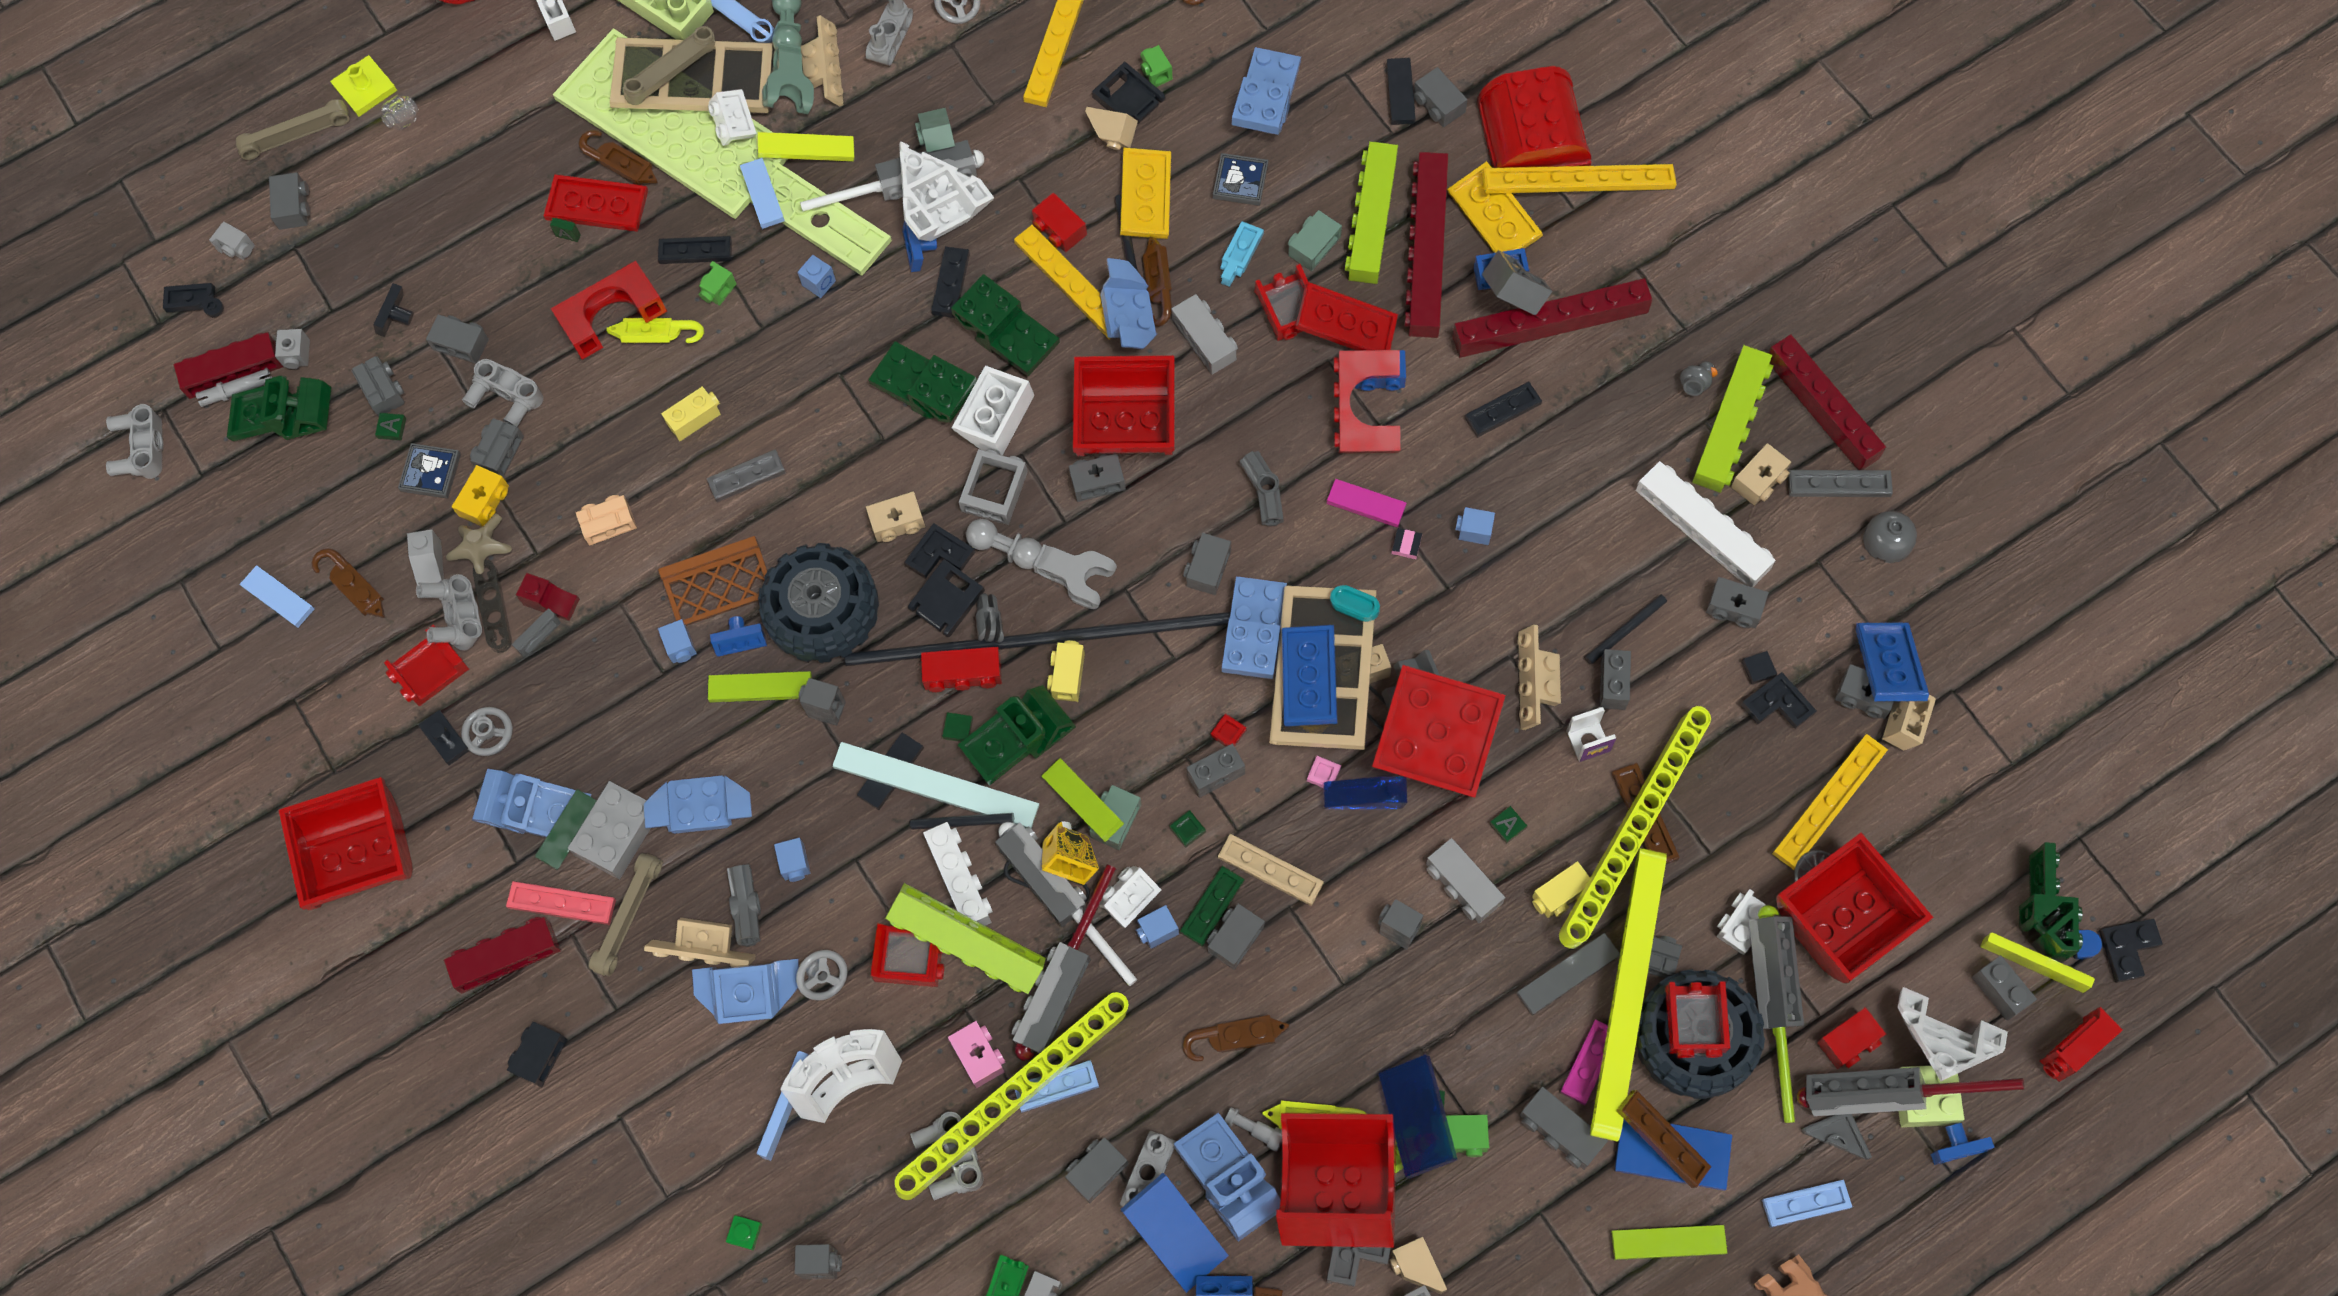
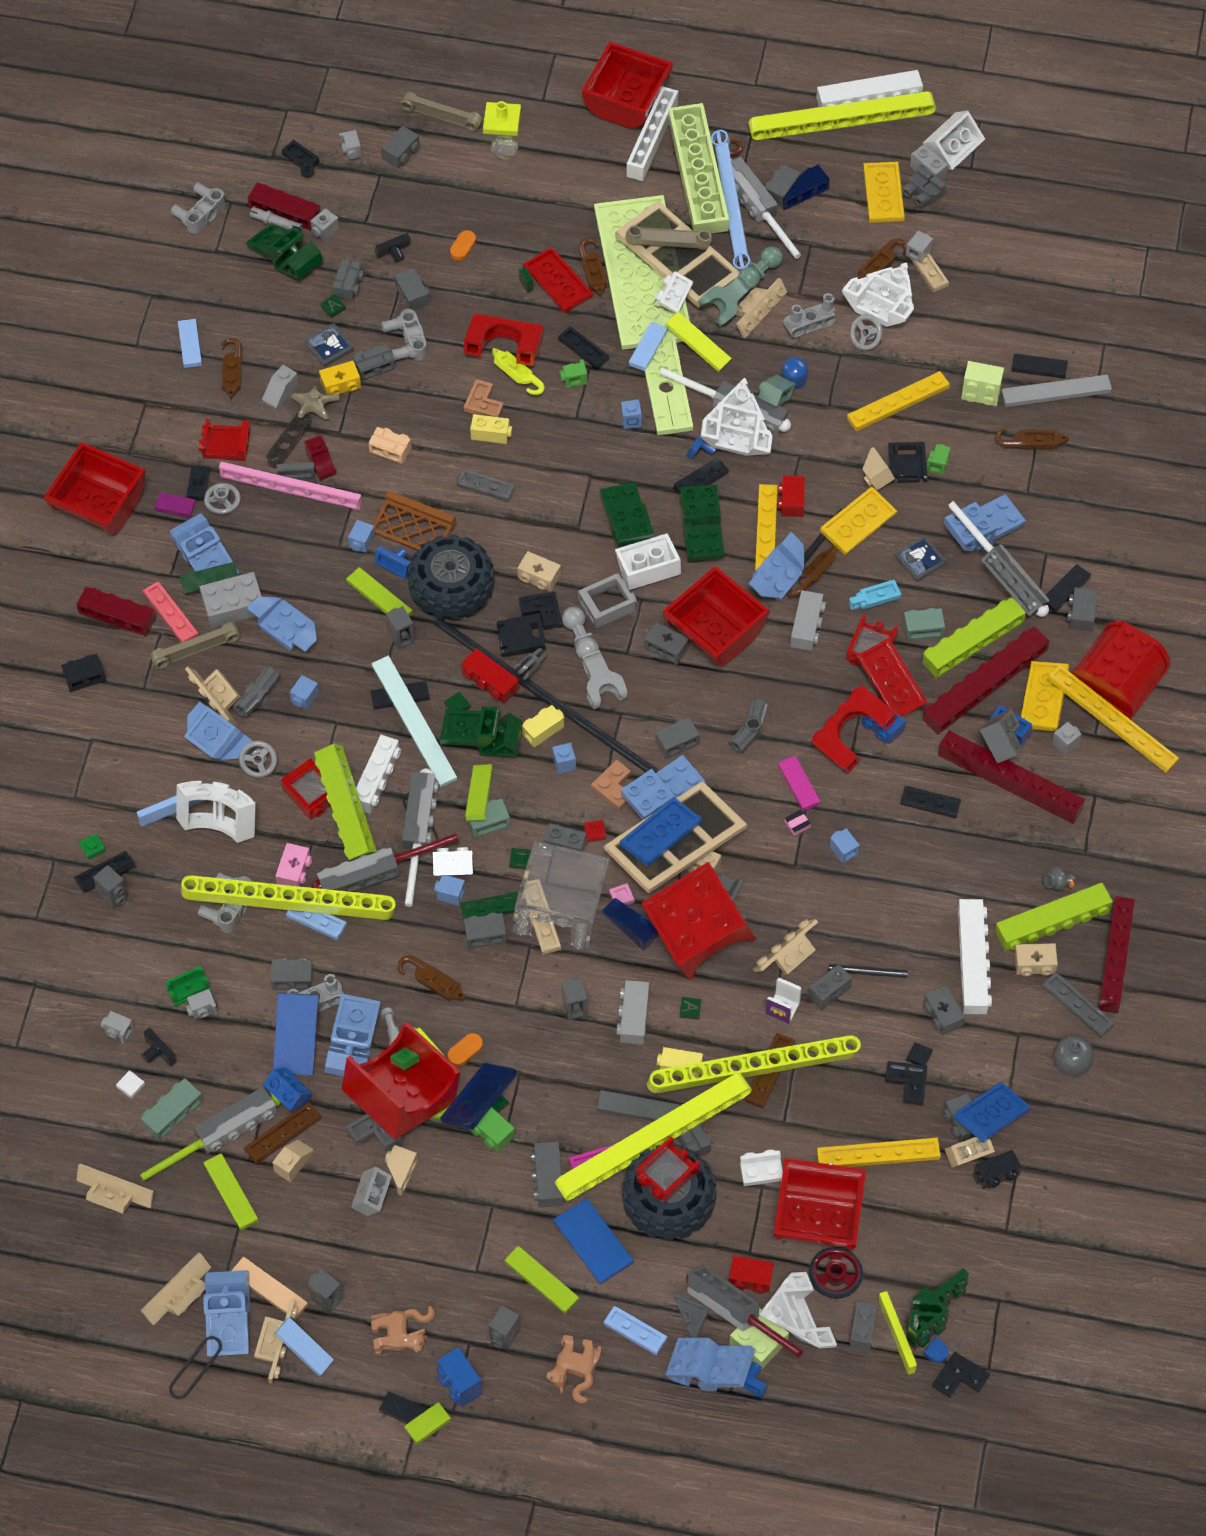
camera: 40 degrees right, 10 degrees down
(443, 783) = (175, 505): none -> magenta tile
(459, 611) = (269, 426): light grey piece -> none
(461, 249) = (463, 245): none -> orange tile
(546, 654) = (290, 485): none -> bright pink tile
(650, 397) = (479, 402): none -> nougat plate
(781, 1264) = (119, 863): none -> black plate
(930, 95) = (795, 370): none -> blue helmet
(959, 821) = (411, 752): black bar -> none
(1068, 854) = (442, 811): yellow torso -> none
(1124, 686) = (564, 758): none -> medium blue brick
(1191, 673) = (609, 784): none -> nougat plate
(1274, 827) = (561, 889): none -> clear windscreen
(1309, 1150) = (404, 1058): none -> green plate
(1342, 119) = (1008, 571): none -> dark grey piece
(1346, 1078) = (465, 1050): none -> orange tile
(1355, 603) = (727, 819): teal tile -> none
(1560, 235) = (1066, 738): none -> light grey brick
(1664, 1138) = (590, 1221): reddish brown tile -> none
(1777, 988) = (736, 1211): piece -> none
(1917, 981) = (835, 1255): none -> dark red wheel
(1923, 1169) = (709, 1363): none -> medium blue piece
(1948, 713) = (997, 1169): none -> black brick
(2081, 1045) = (868, 1389): red window -> none

